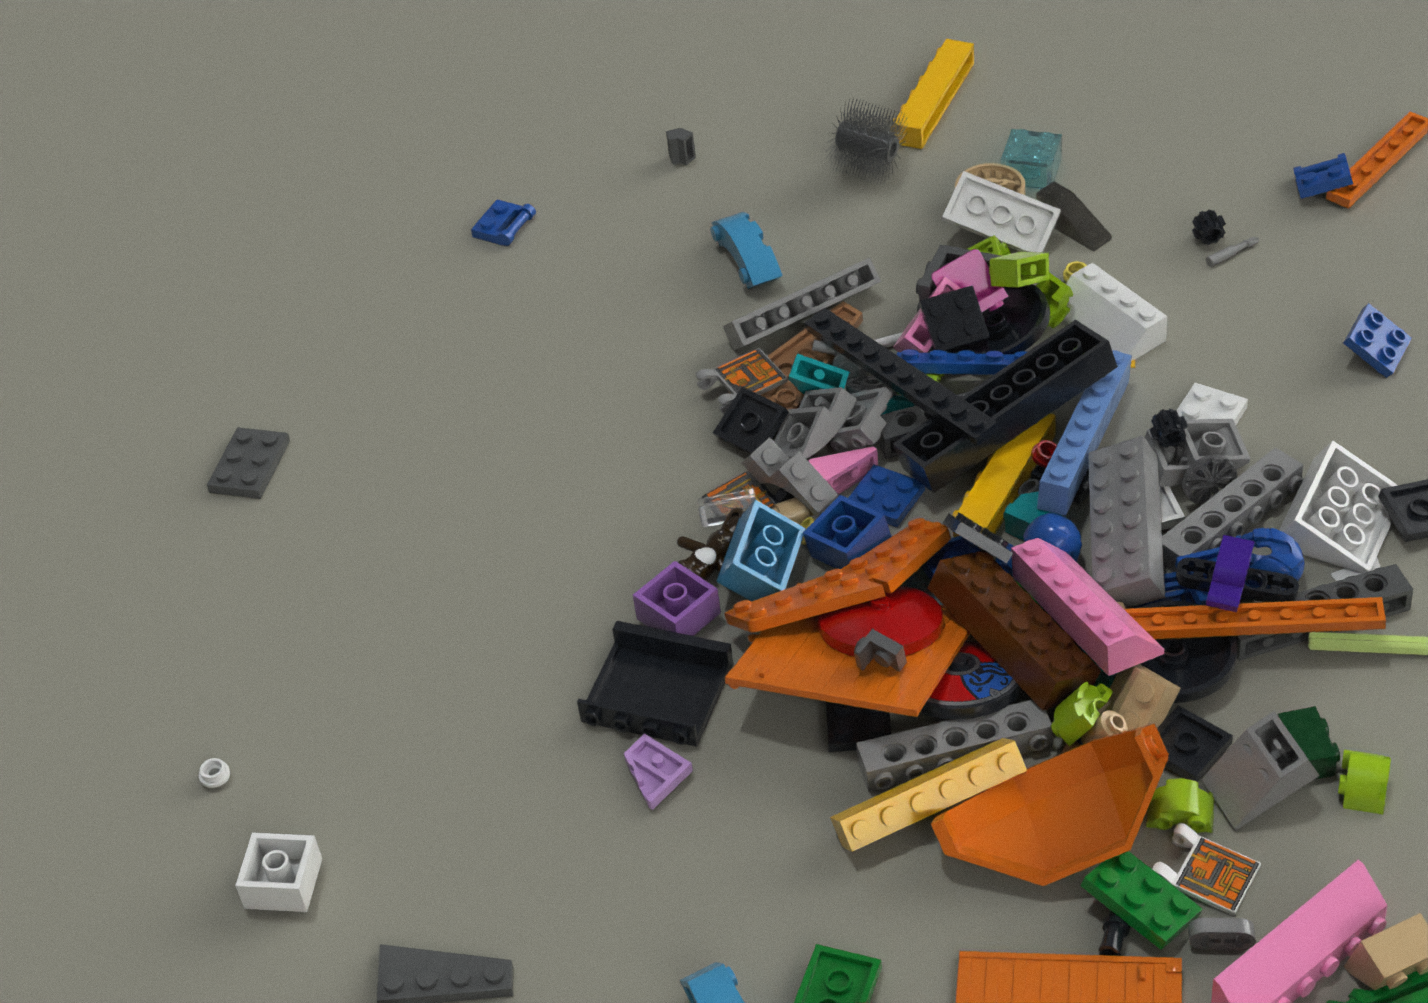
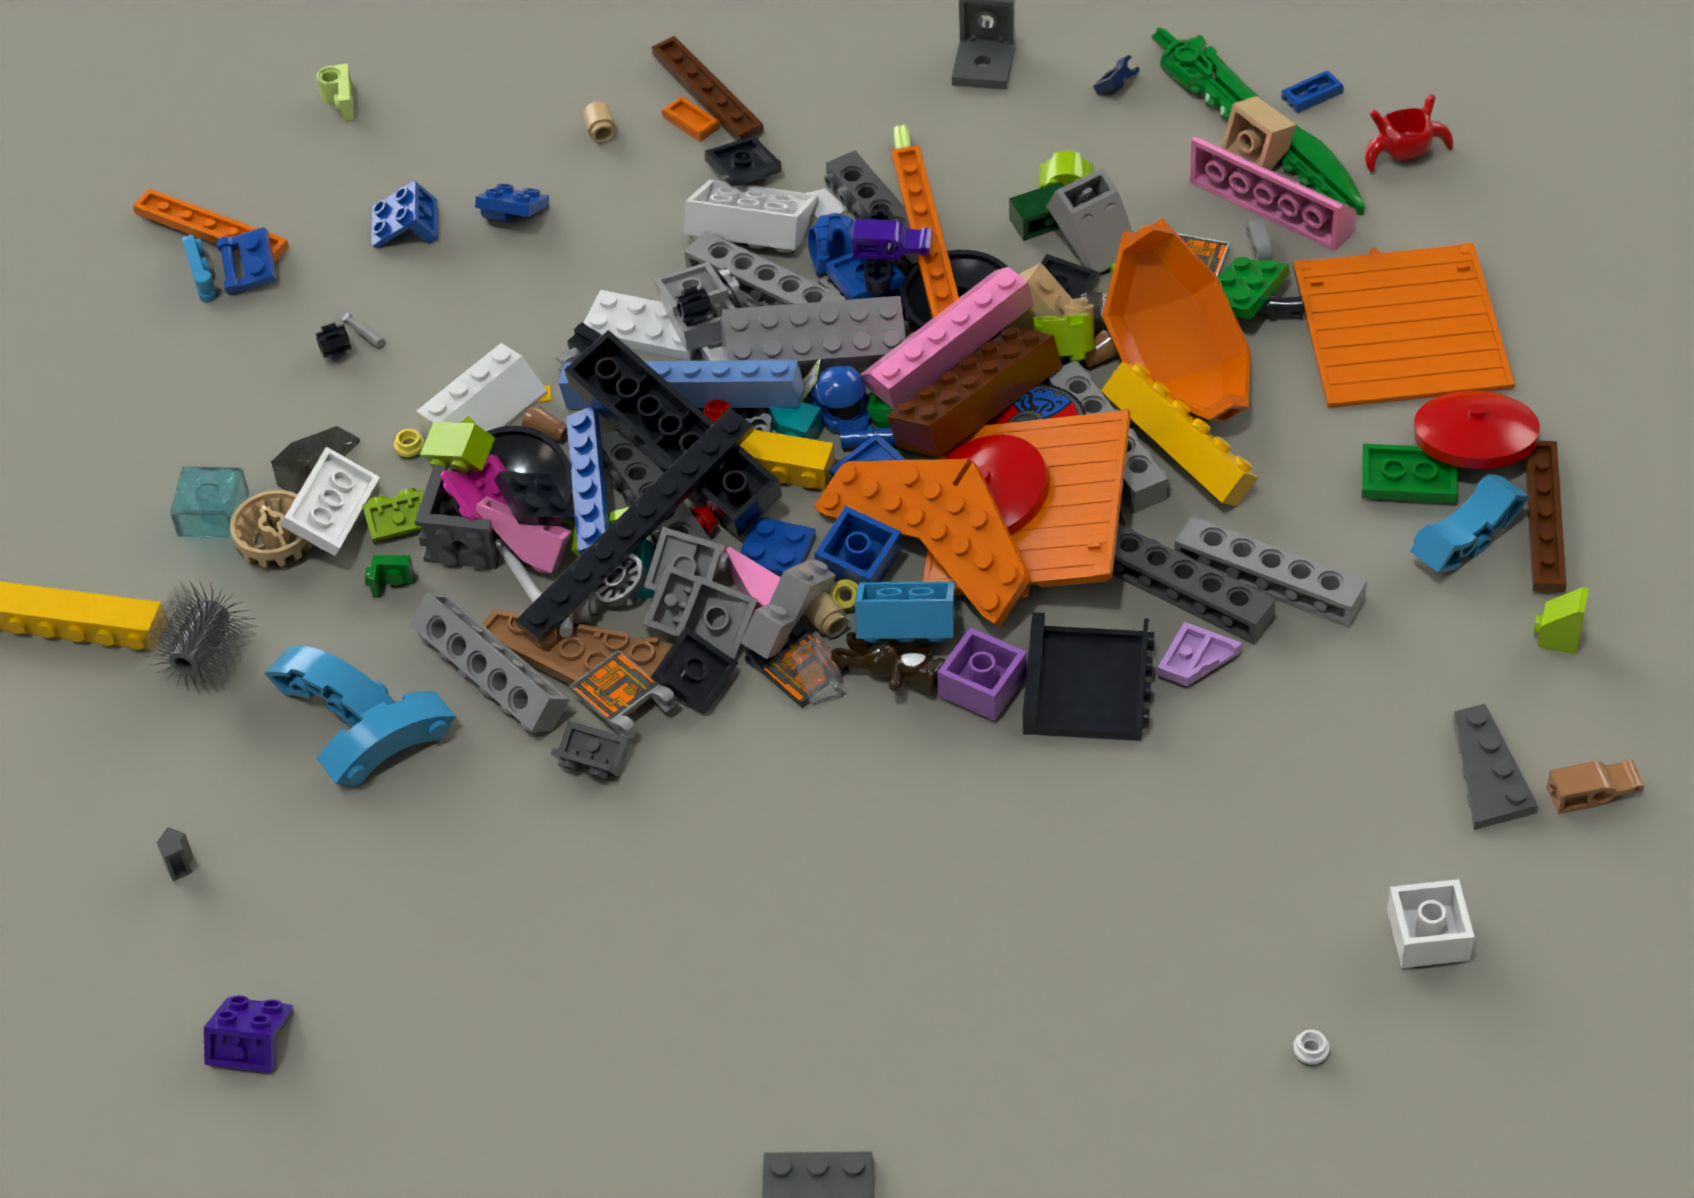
camera: 105 degrees left, 5 degrees up
(498, 217) = (318, 1039): blue plate -> none
(517, 182) = (245, 1033): none -> dark purple bracket
(689, 358) = (592, 749): none -> dark grey bracket
(733, 846) = (1274, 571): none -> light grey brick
(742, 773) = (1192, 586): none -> dark grey brick
(805, 216) = (344, 688): none -> dark azure brick
(816, 375) = (630, 608): teal slope -> none
(882, 649) = (1057, 453): dark grey bracket -> none
(921, 251) = (389, 570): none -> green bracket
(986, 539) = (867, 425): plate -> none
(1078, 520) = (810, 380): none -> sticker
(1169, 384) = (583, 338): none -> black piece
(1323, 149) = (199, 268): none -> dark azure plate
(1373, 278) = (405, 209): none -> blue bracket

